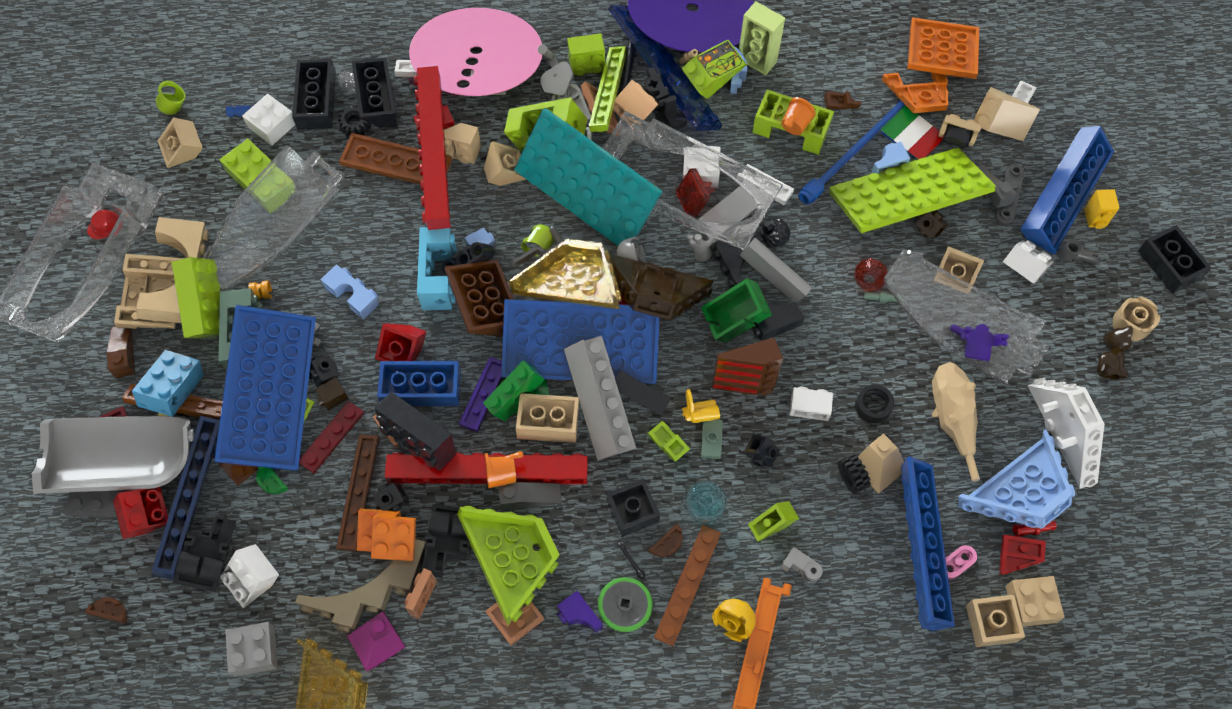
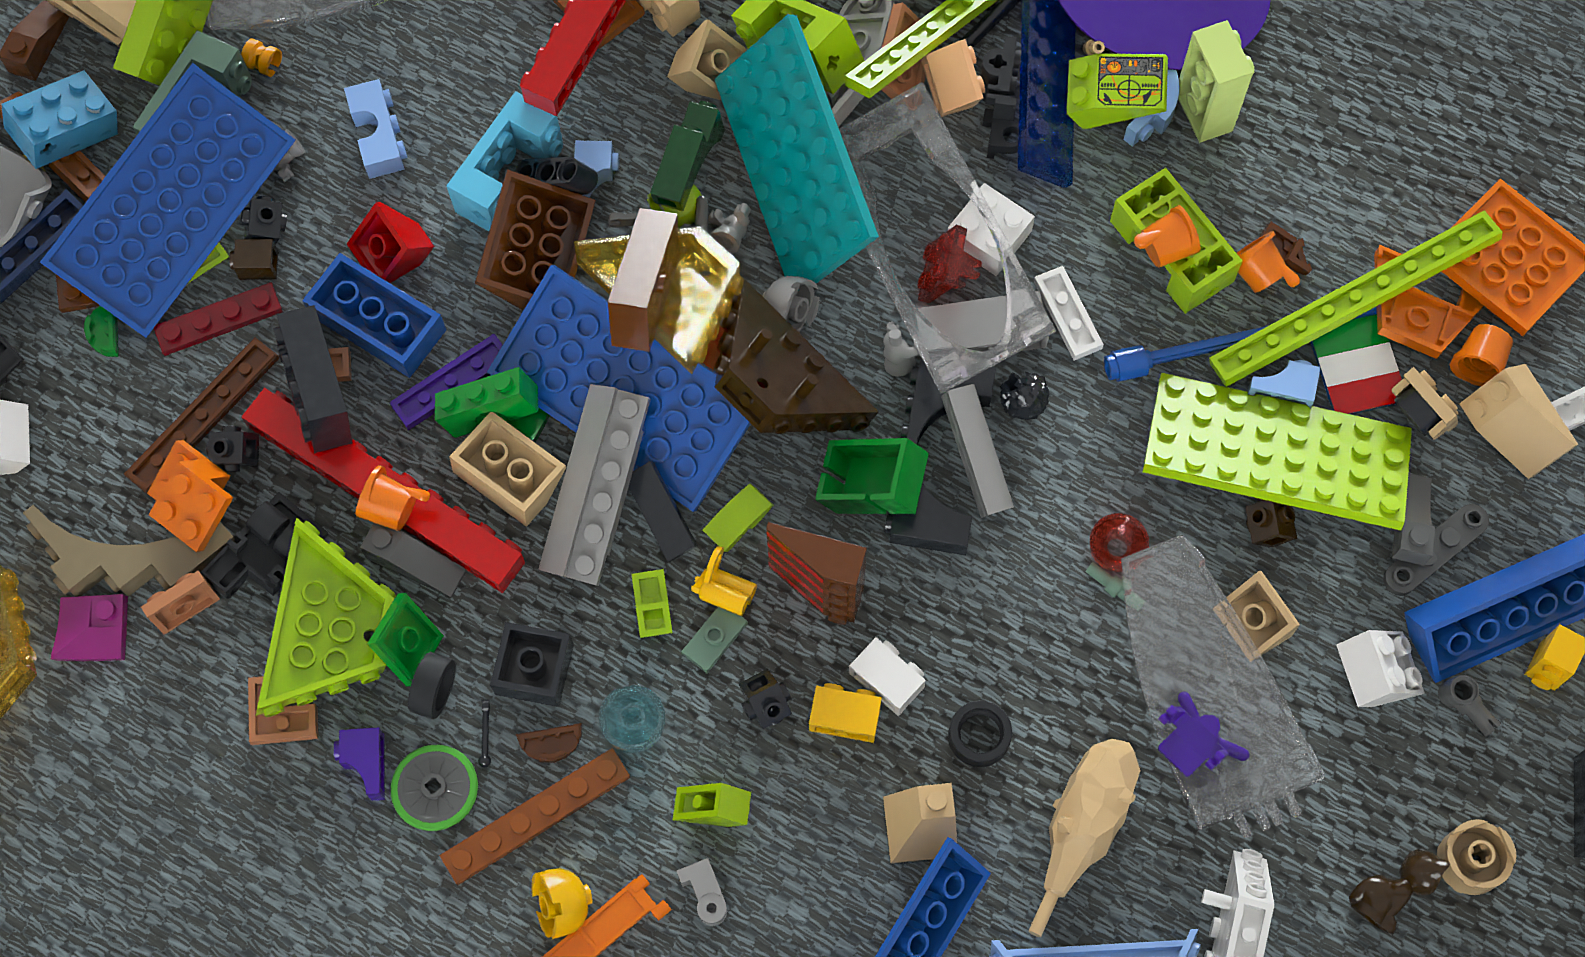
camera: 35 degrees right, 5 degrees up
(531, 210) = (686, 153): none -> dark green arch
(559, 536) = (404, 638): none -> green tile
(564, 275) = (644, 280): none -> brick
(574, 232) = (730, 229): none -> light grey piece
(589, 551) = (431, 685): none -> black tyre
(680, 373) = (737, 517): none -> lime slope
(804, 434) = (845, 712): none -> yellow brick
(842, 110) = (1264, 265): none -> orange hat
(854, 473) = (868, 813): black tyre -> none
(893, 103) = (1355, 298): none -> lime plate
(966, 96) = (1482, 354): none -> orange hat

